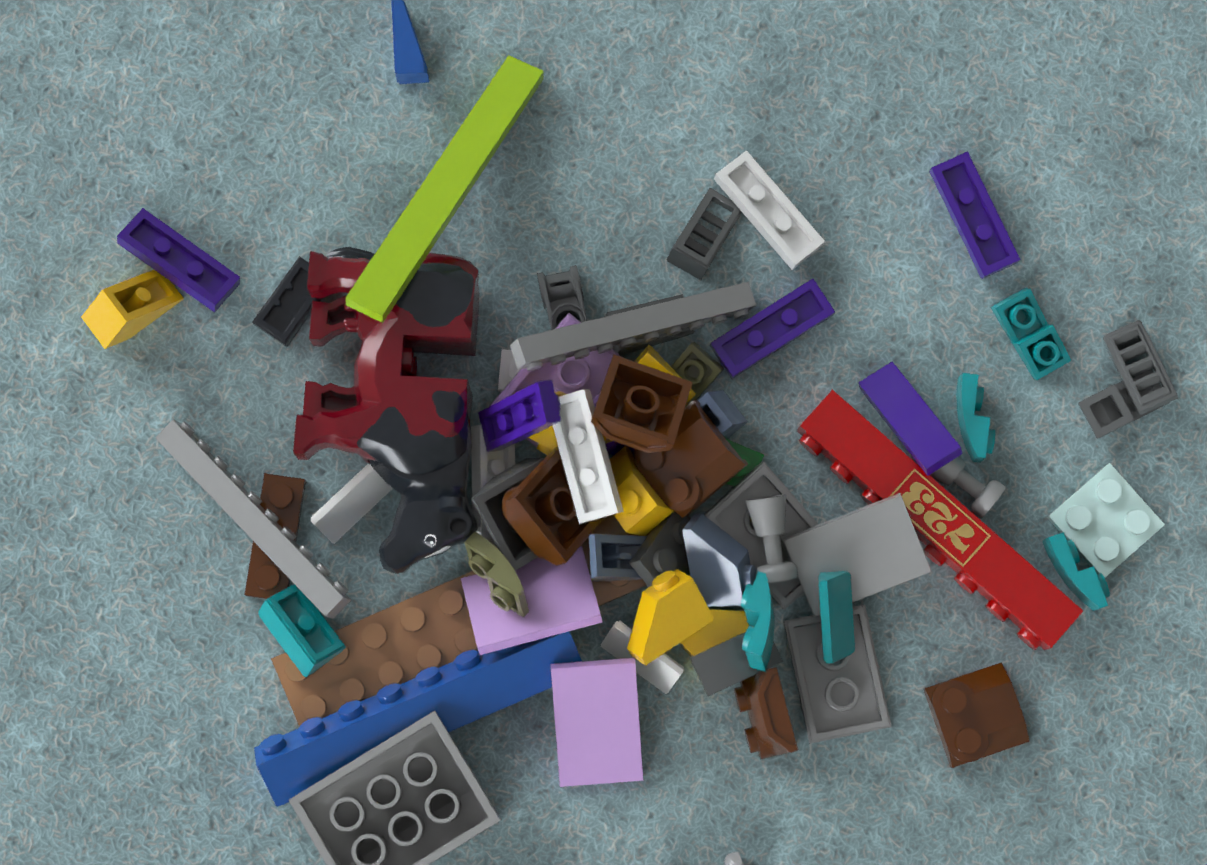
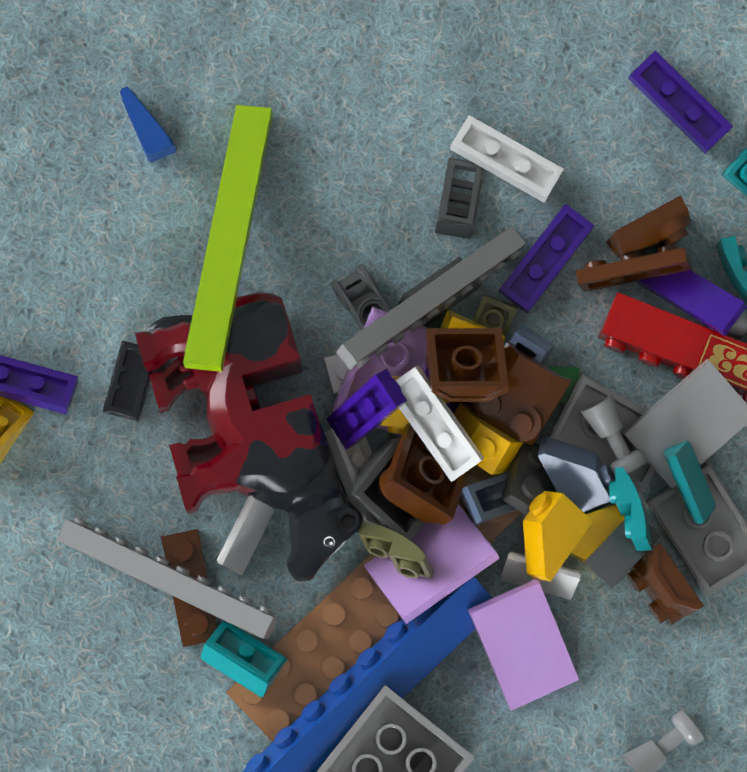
camera: 25 degrees left, 0 degrees up
(859, 371) = (633, 268): none -> reddish brown plate
(899, 336) = (659, 227): none -> reddish brown slope

